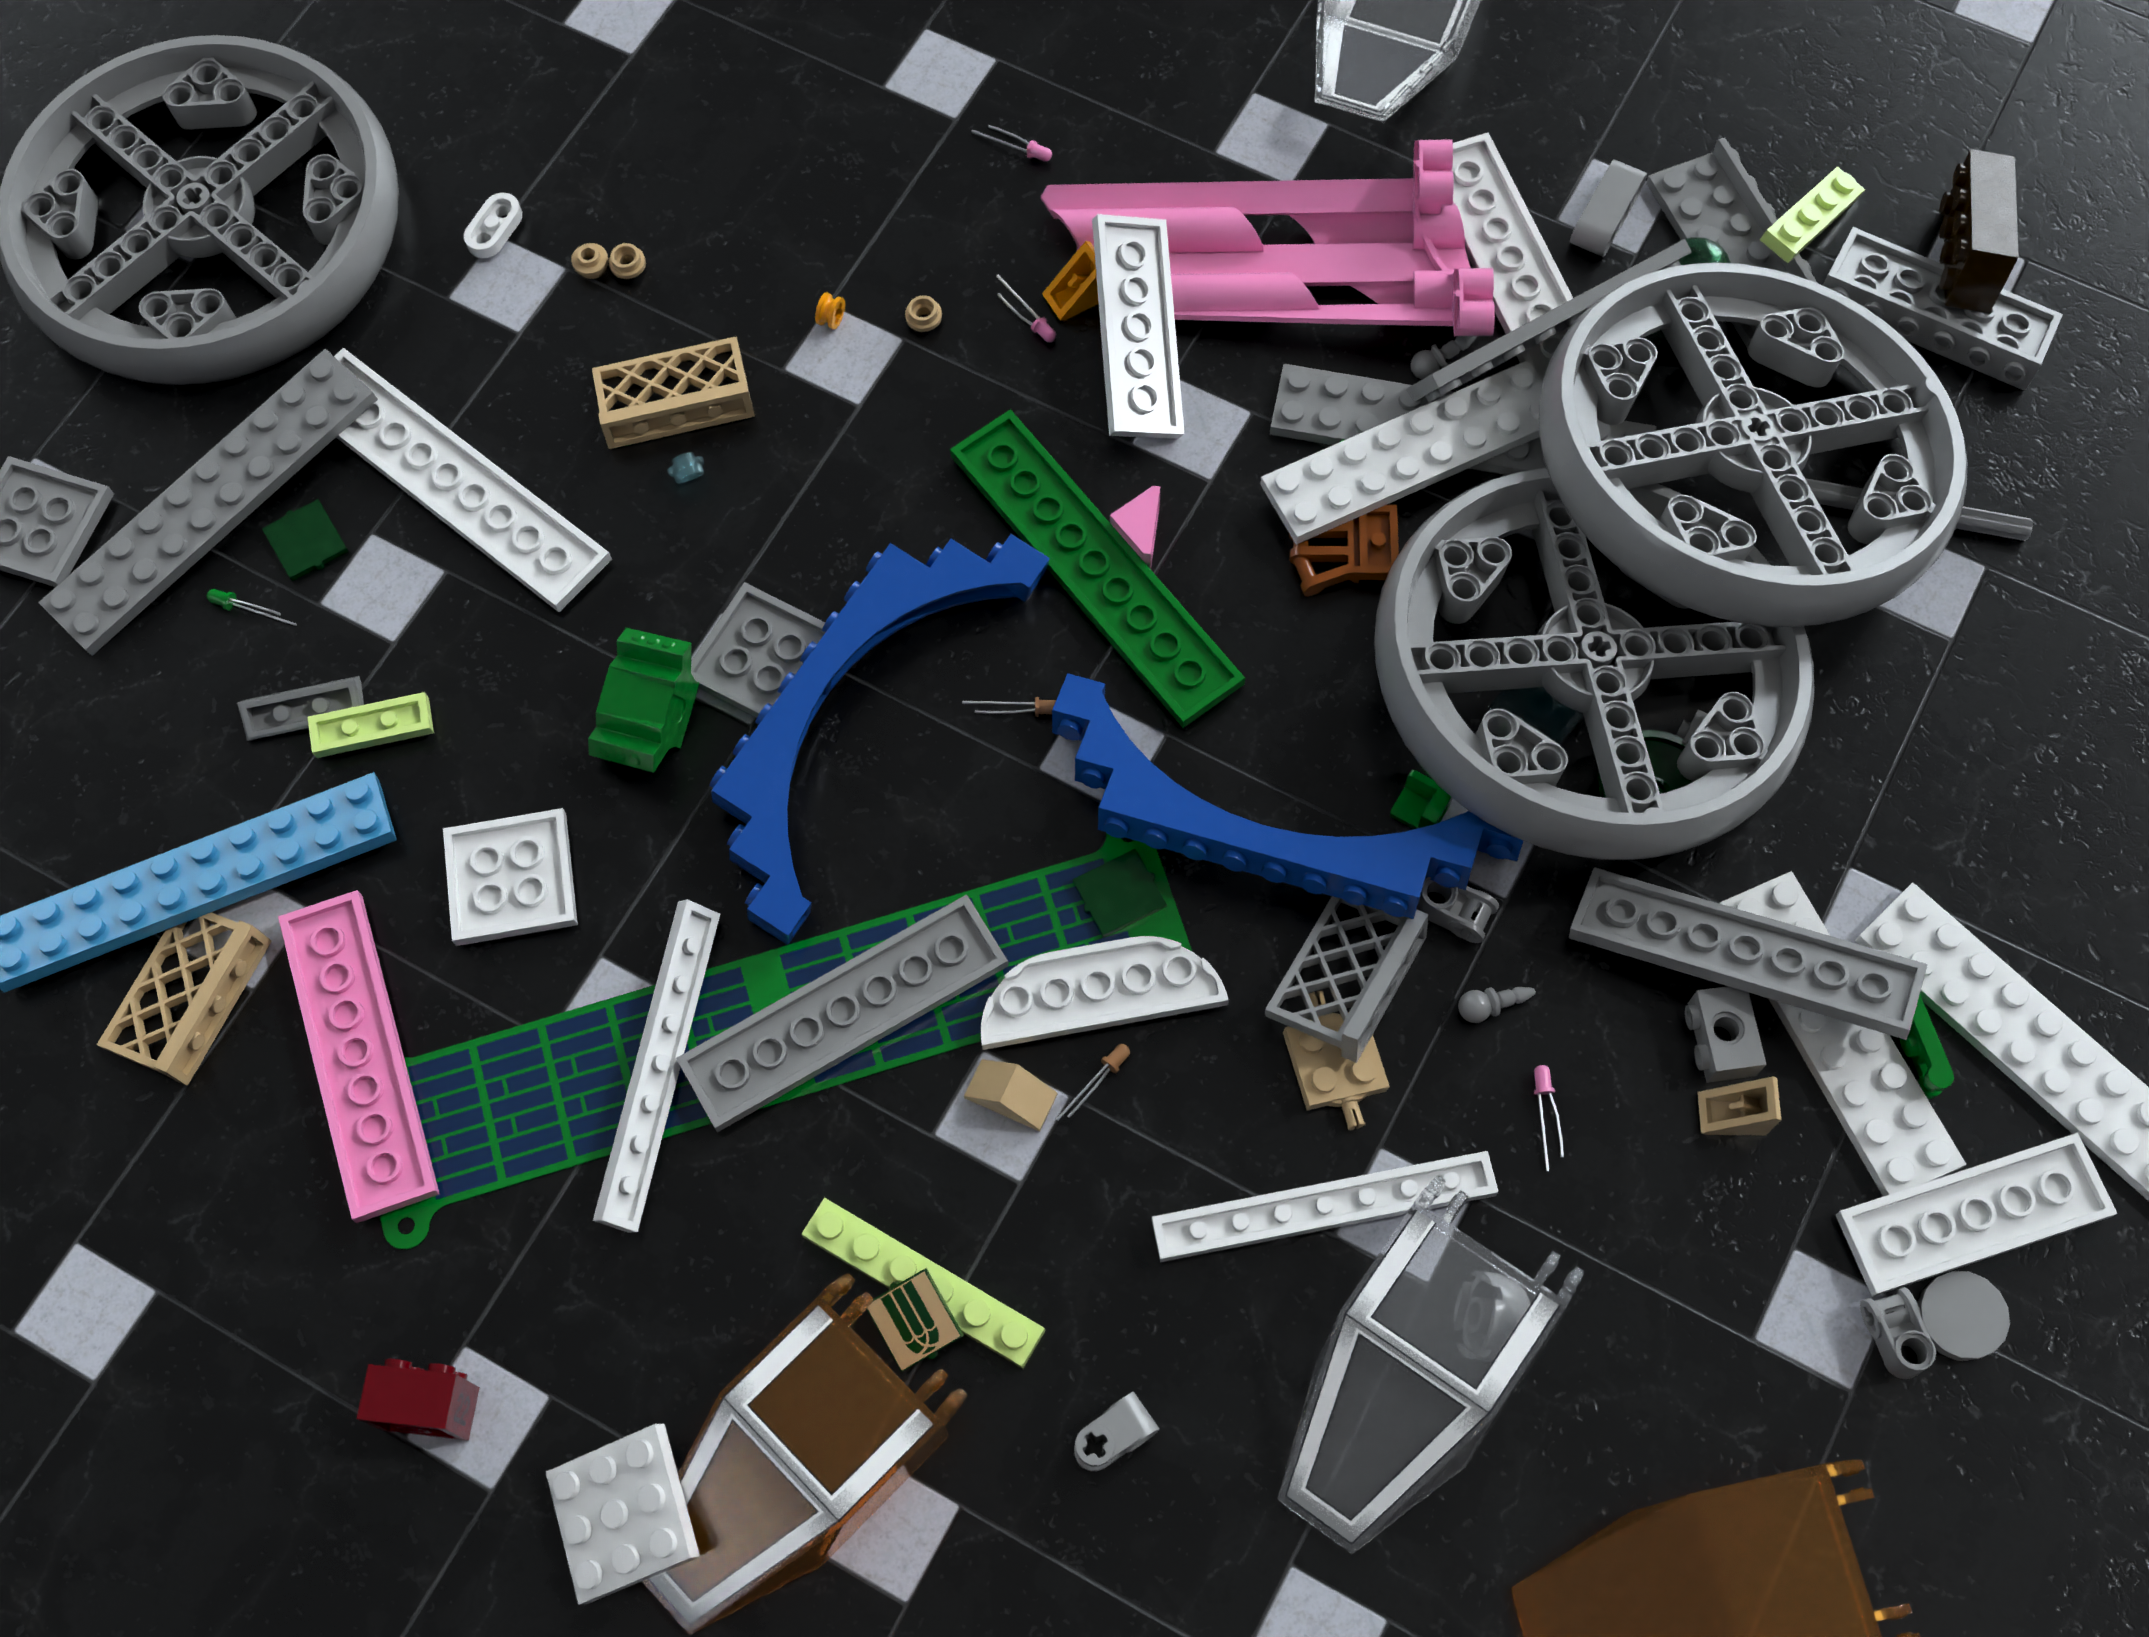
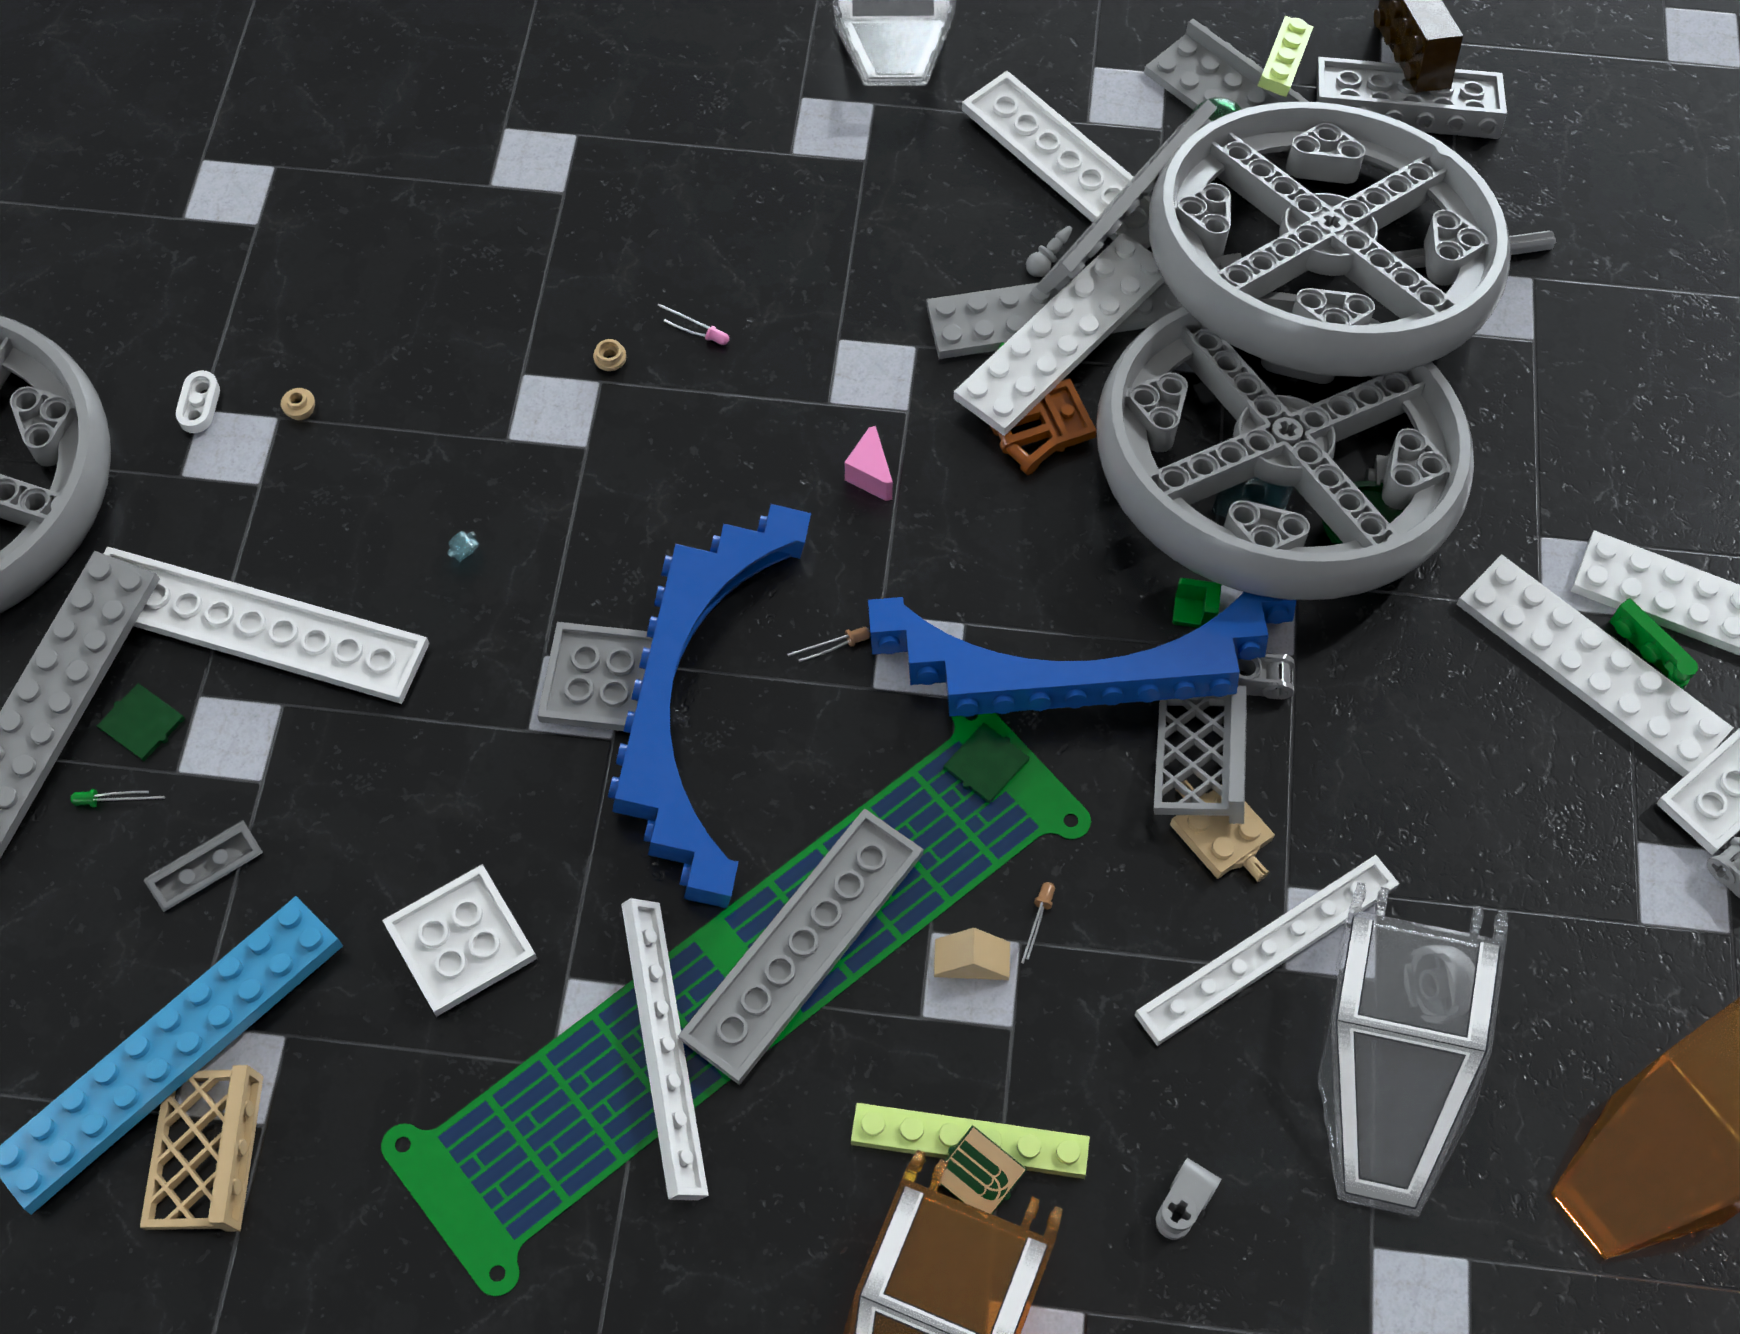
camera: 25 degrees left, 5 degrees down
(358, 1057) = (391, 1143): bright pink plate -> none
(370, 725) = (274, 857): yellowish green plate -> none
(626, 253) = (330, 387): tan plate -> none
(644, 700) = (517, 746): green slope -> none
(676, 412) = (433, 502): tan fence -> none
(830, 310) = (529, 377): light orange bush -> none
(1033, 149) = (642, 196): piece -> none
(1075, 285) = (731, 289): light orange slope -> none
(1098, 568) = (850, 509): green plate -> none
(1098, 989) = (1007, 845): white plate -> none
(1137, 327) = (800, 306): white plate -> none
(1381, 236) = (819, 238): bright pink panel -> none
(1477, 1005) = (1314, 744): light grey bar -> none
(1544, 1087) = (1393, 790): piece -> none
(1608, 208) = (1126, 100): light grey beam -> none
(1734, 1012) = (1511, 677): light grey brick -> none
(1740, 1108) = (1552, 747): tan slope -> none
(1750, 952) = (1503, 624): light grey plate -> none

